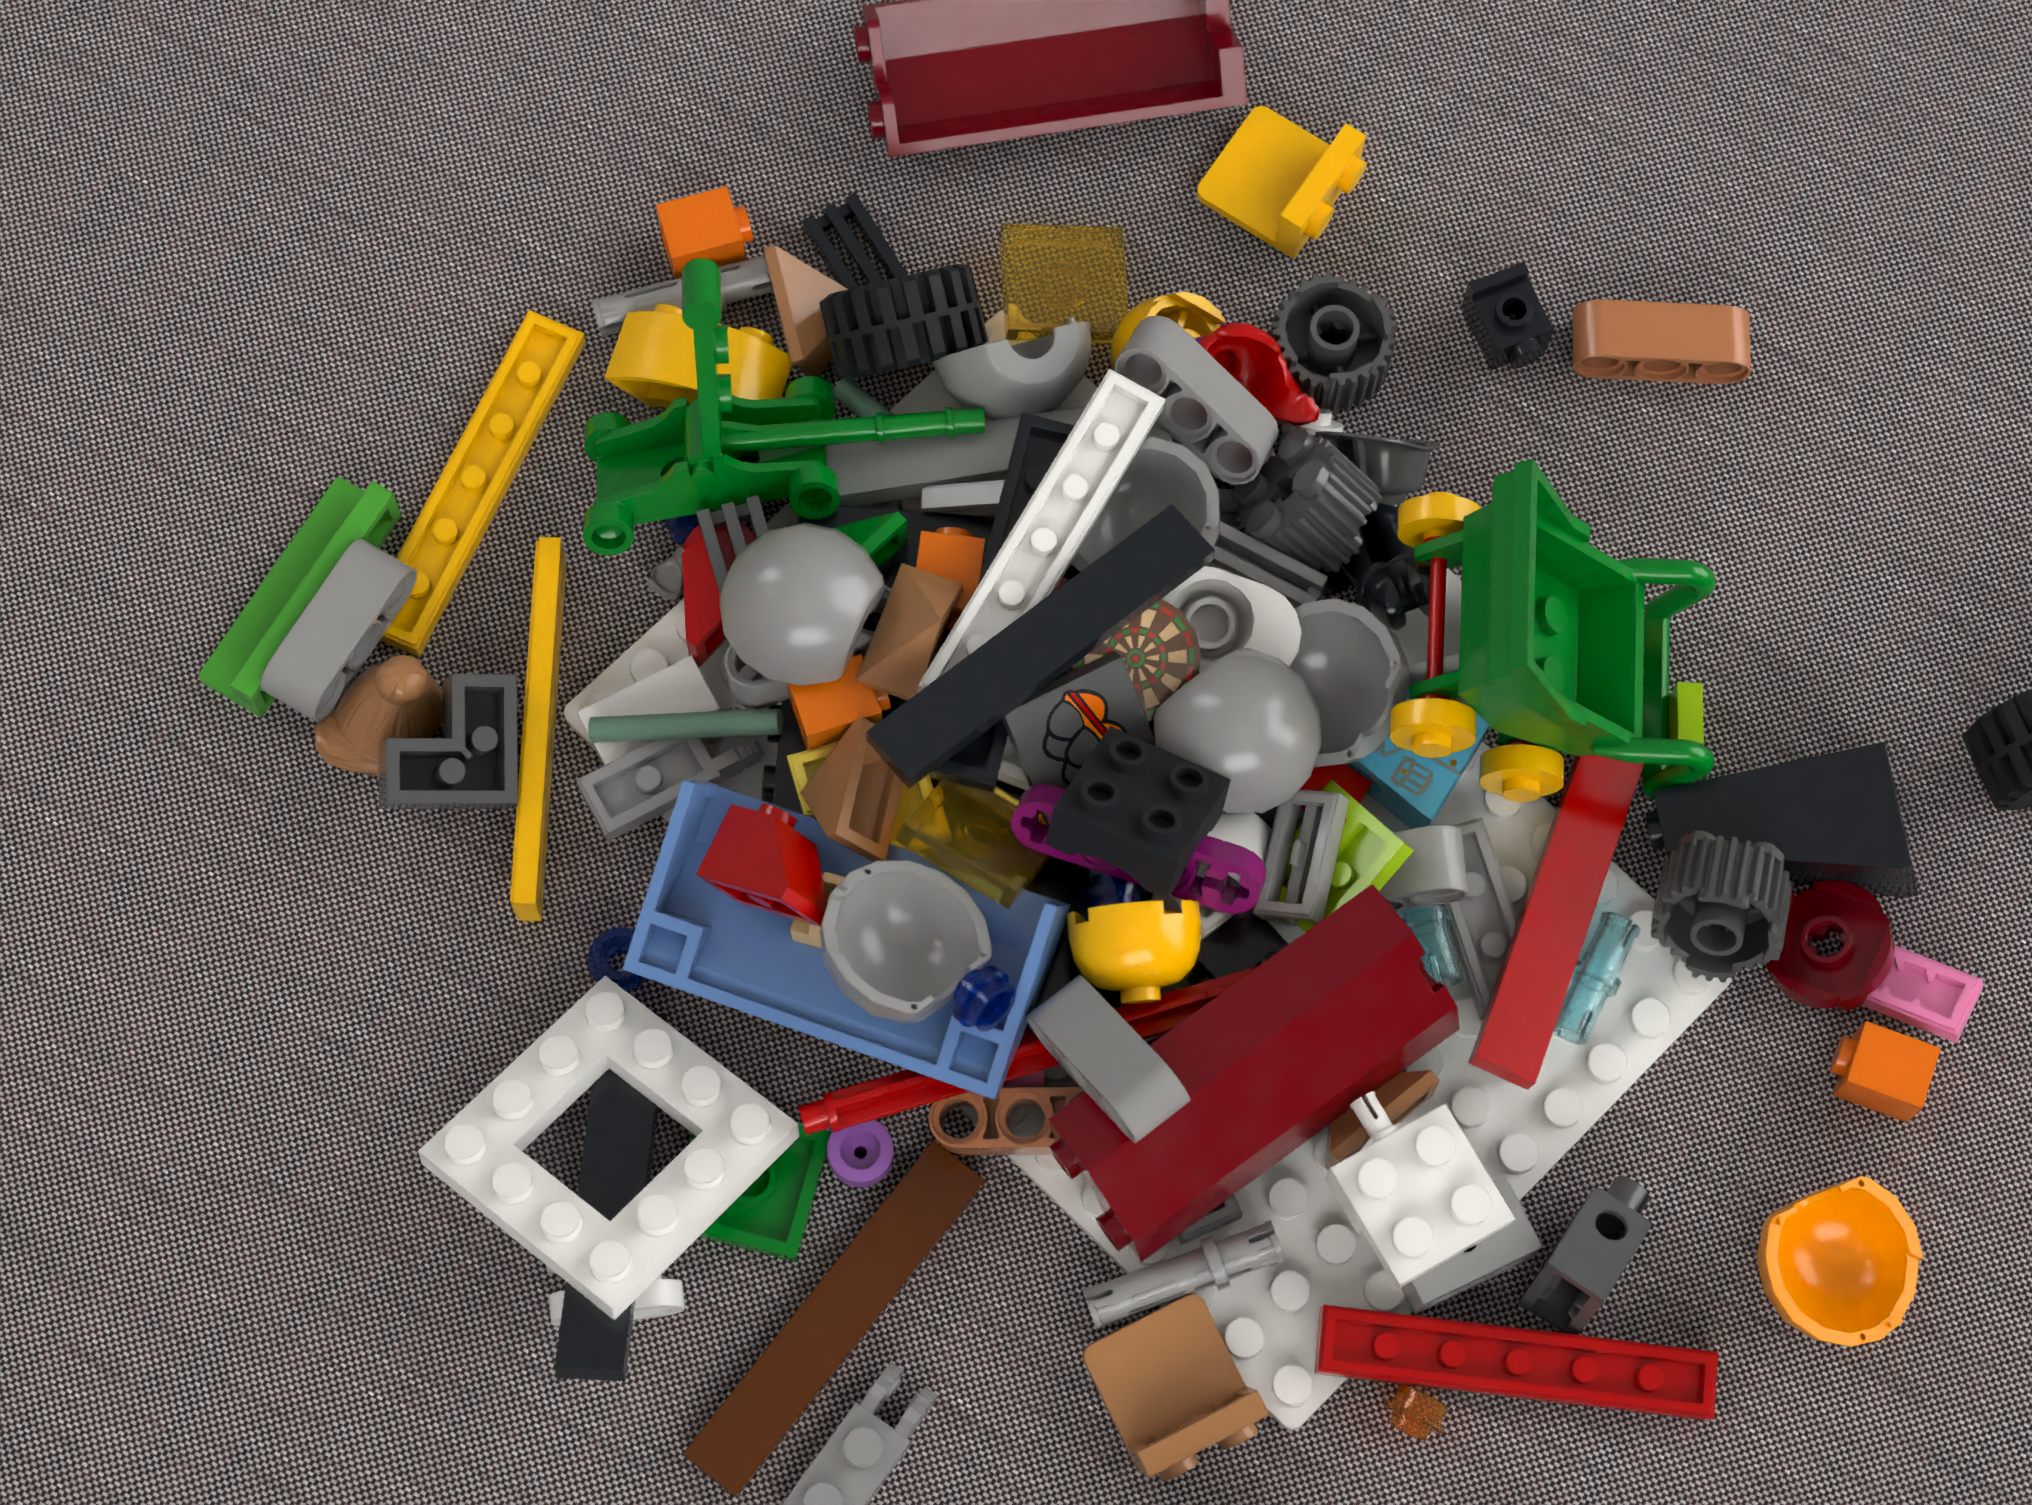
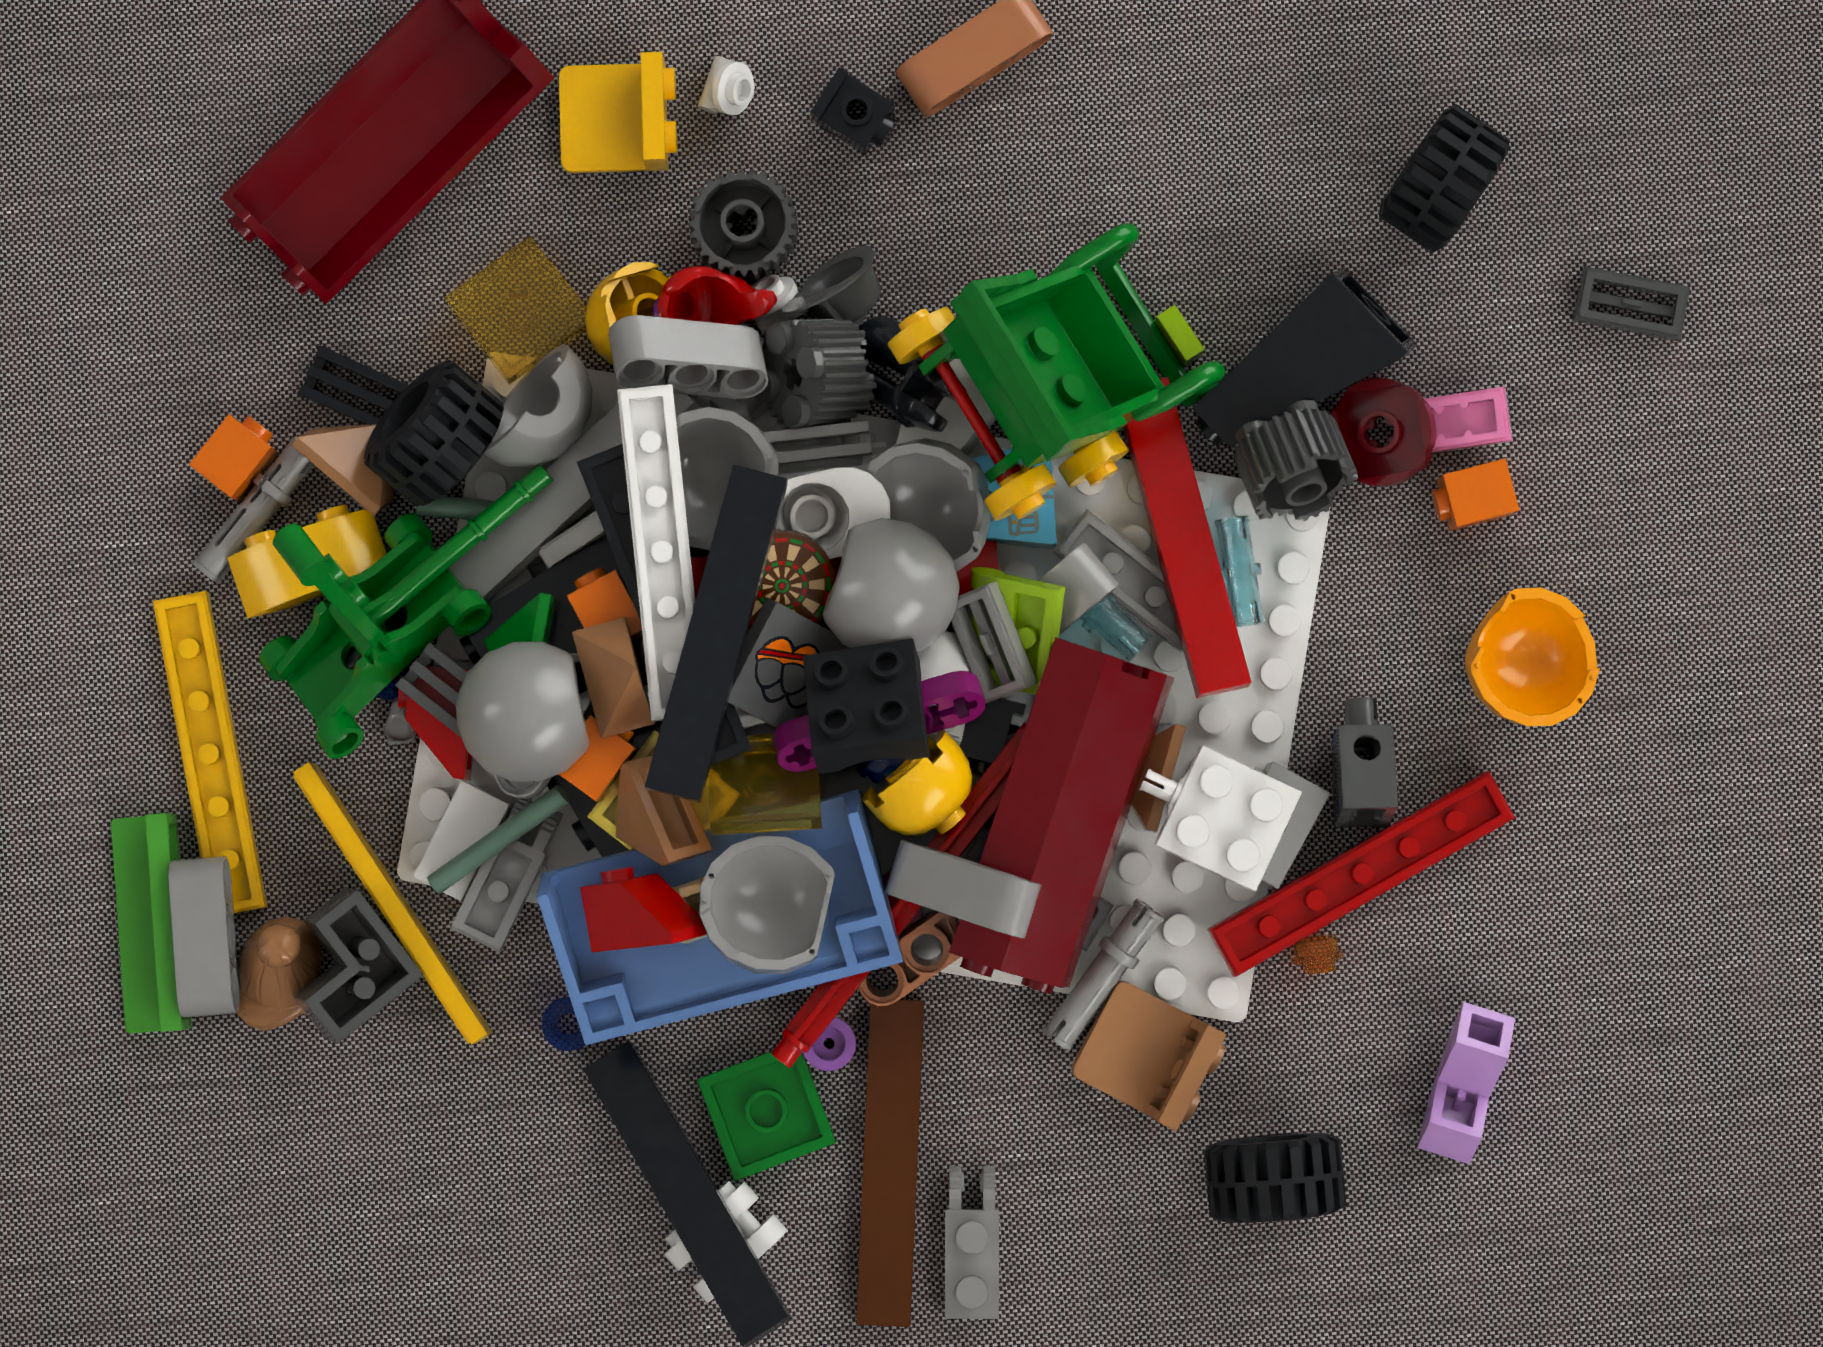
camera: 25 degrees left, 15 degrees up
(602, 1258) = (730, 1239): white plate -> none
(983, 998) = (850, 906): clear blue plate -> none
(1403, 223) = (727, 87): none -> white plate

